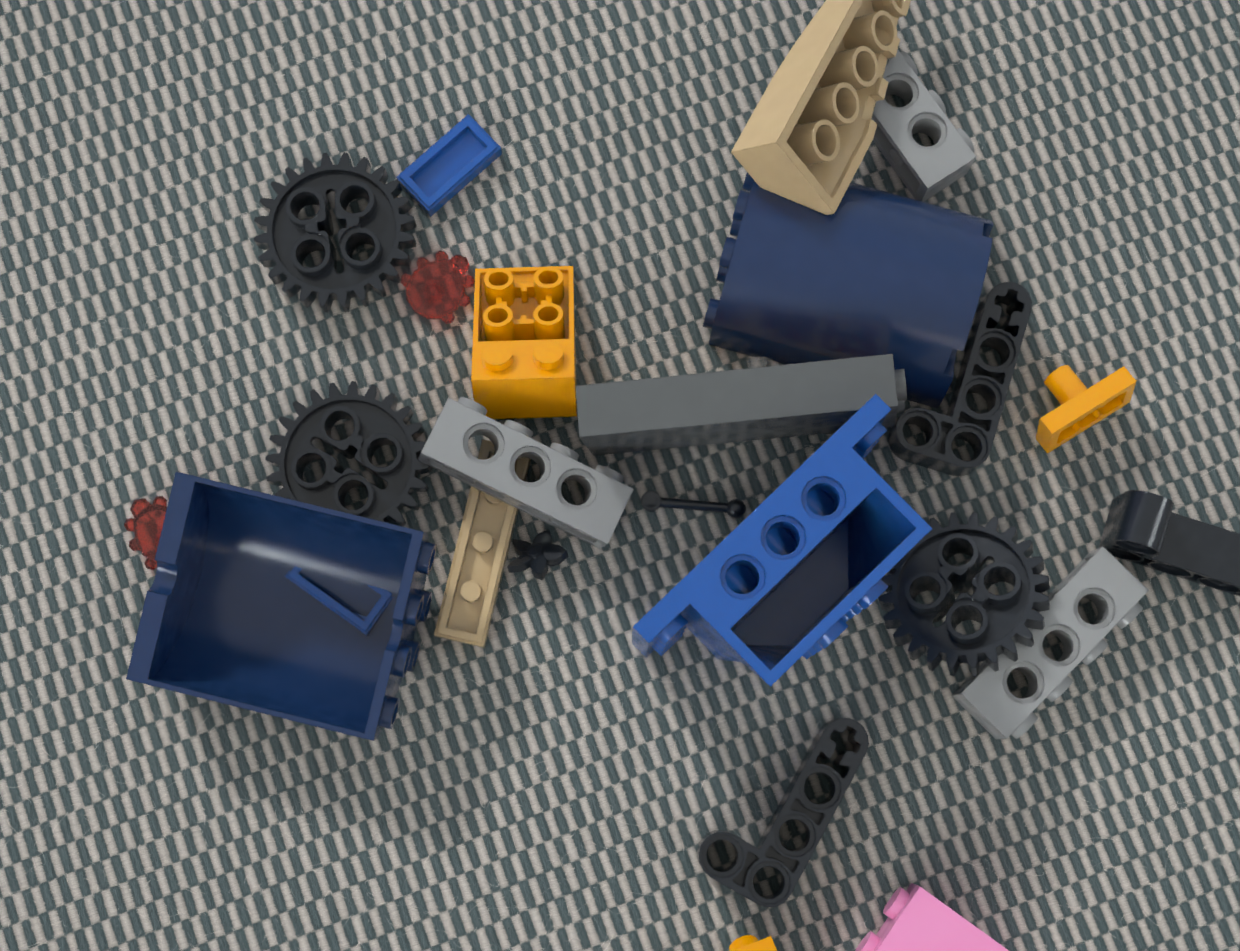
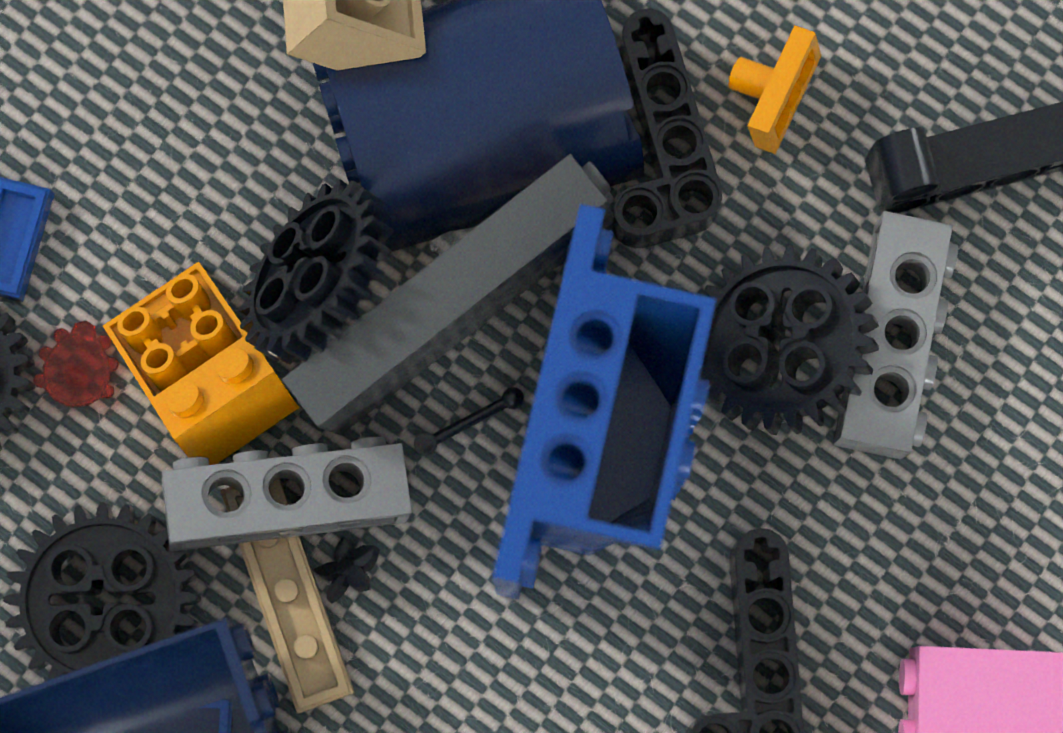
camera: 35 degrees left, 0 degrees up
(651, 324) = (315, 272): none -> black gear

